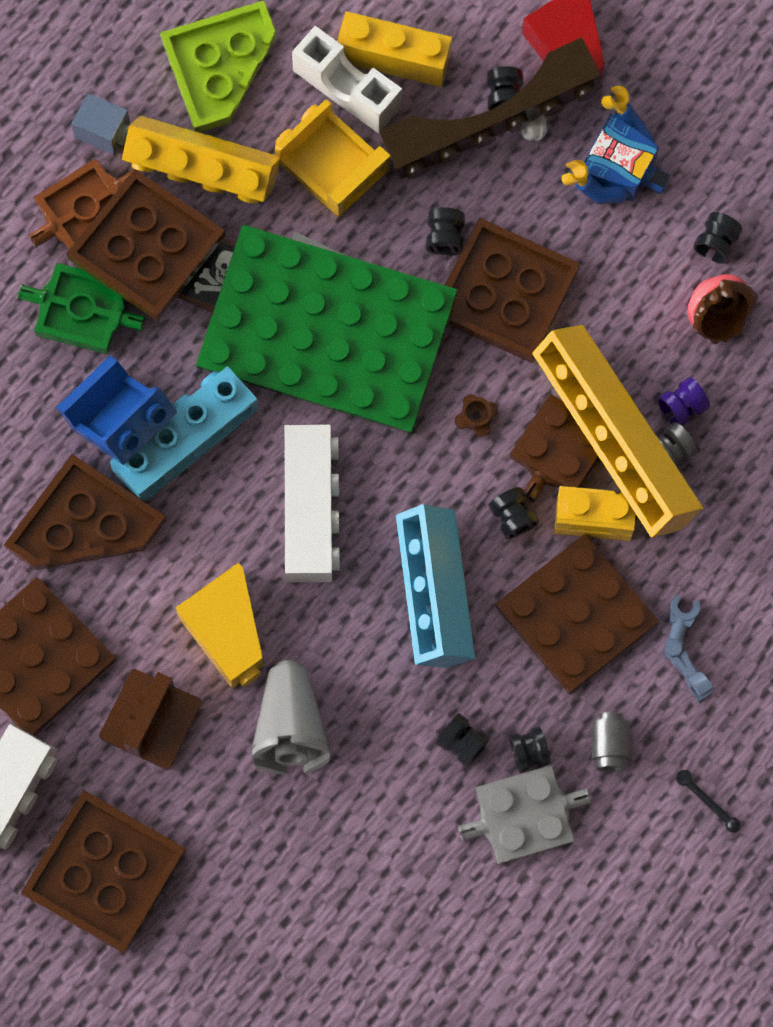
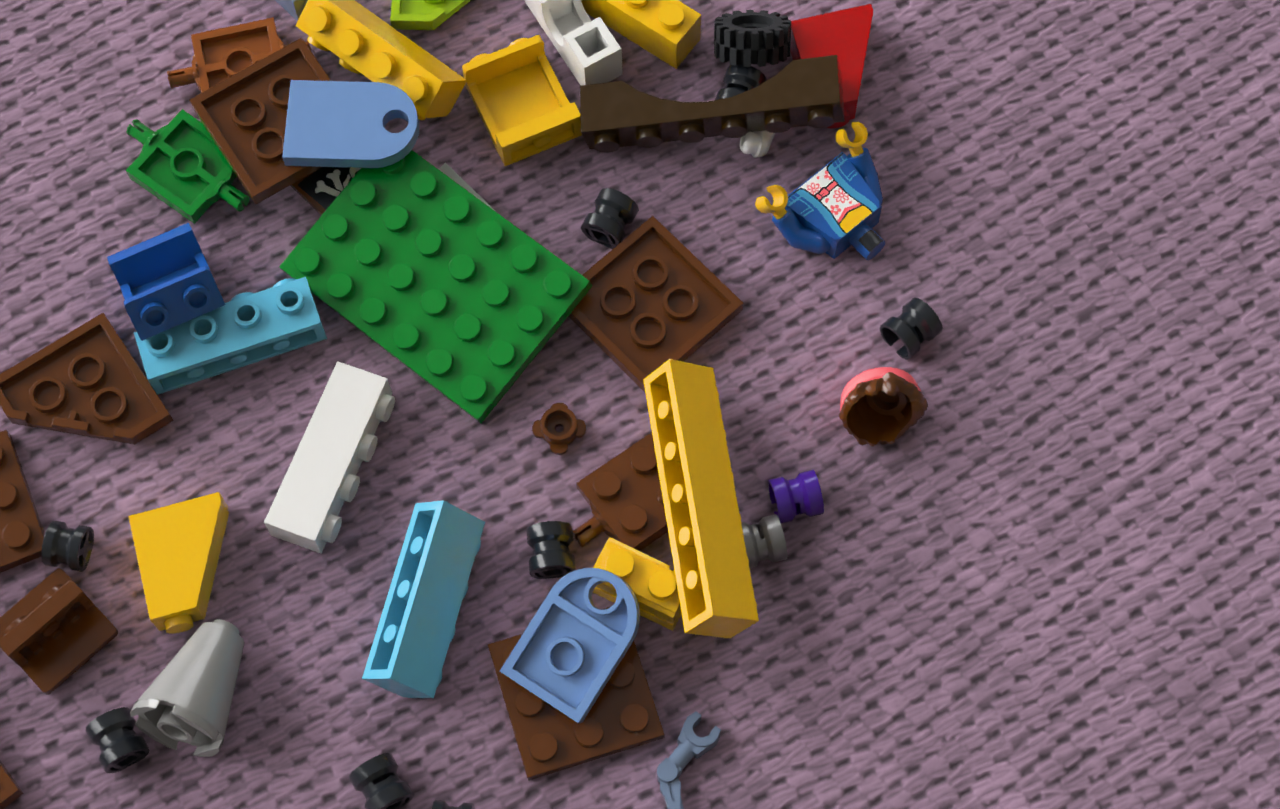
camera: 25 degrees right, 5 degrees down
(132, 649) = (67, 546): none -> black wheel
(206, 229) = (346, 124): none -> medium blue tile
(246, 784) = (117, 740): none -> black wheel
(499, 42) = (752, 38): none -> black tyre
(568, 578) = (573, 644): none -> medium blue tile

